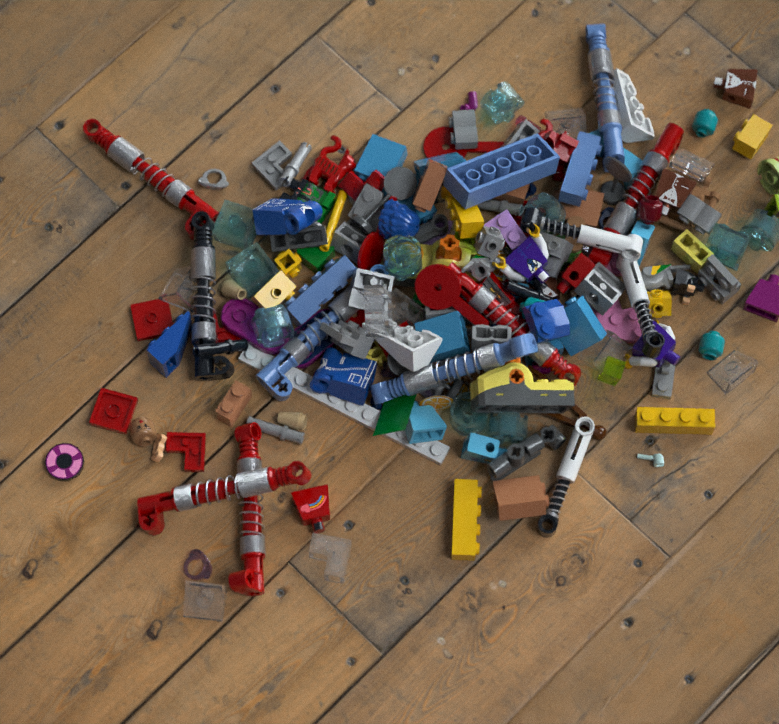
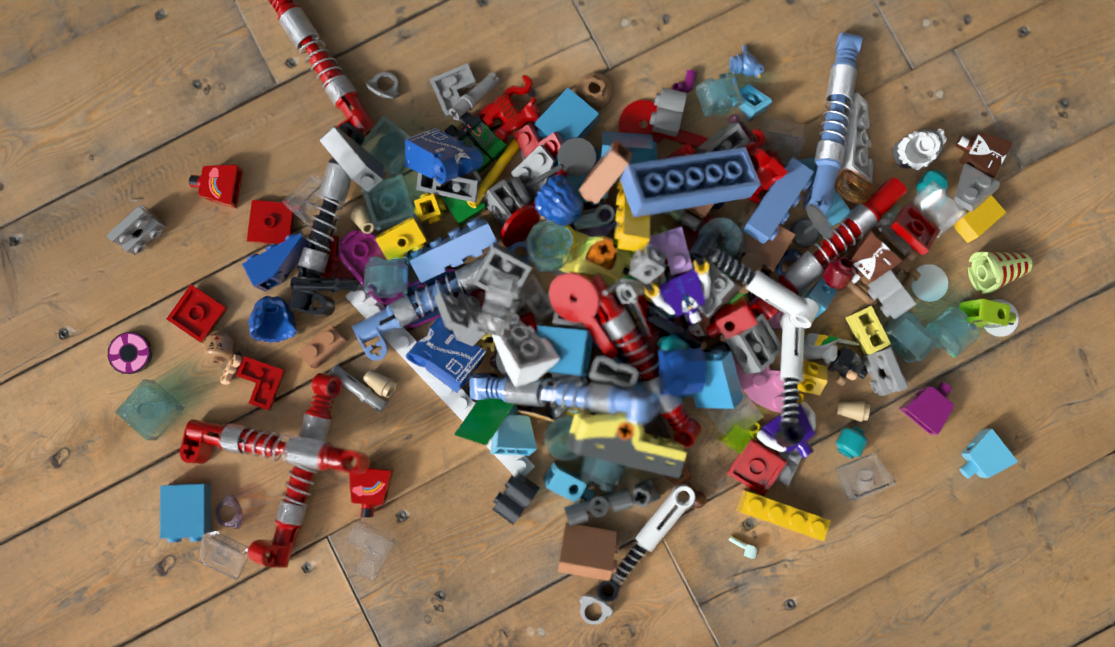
camera: 15 degrees right, 15 degrees up
(31, 362) = (125, 232): none -> light grey brick
(97, 300) = (219, 184): none -> red torso
(100, 500) = (149, 410): none -> clear light blue brick
(159, 575) = (185, 511): none -> dark azure brick
(184, 394) = (272, 320): none -> blue hair
(214, 237) = (354, 159): none -> slope
(402, 137) = (599, 100): none -> medium nougat piece
(442, 475) = (516, 497): none -> black brick
(465, 519) = (523, 554): yellow brick -> none
(516, 73) = (746, 64): none -> medium blue animal
(533, 540) = (586, 600): none -> light grey piece
(534, 102) = (754, 102): none -> medium azure slope
(629, 141) = (847, 177): none -> clear orange piece
(638, 388) = (757, 467): none -> plate
(682, 97) = (919, 148): none -> white hair
(701, 158) = (915, 229): none -> red plate
(704, 320) = (854, 409): none -> tan cone
(712, 142) = (938, 207): none -> clear slope
(732, 202) = (931, 284): none -> white sticker
(739, 114) = (974, 188): none -> light grey wing

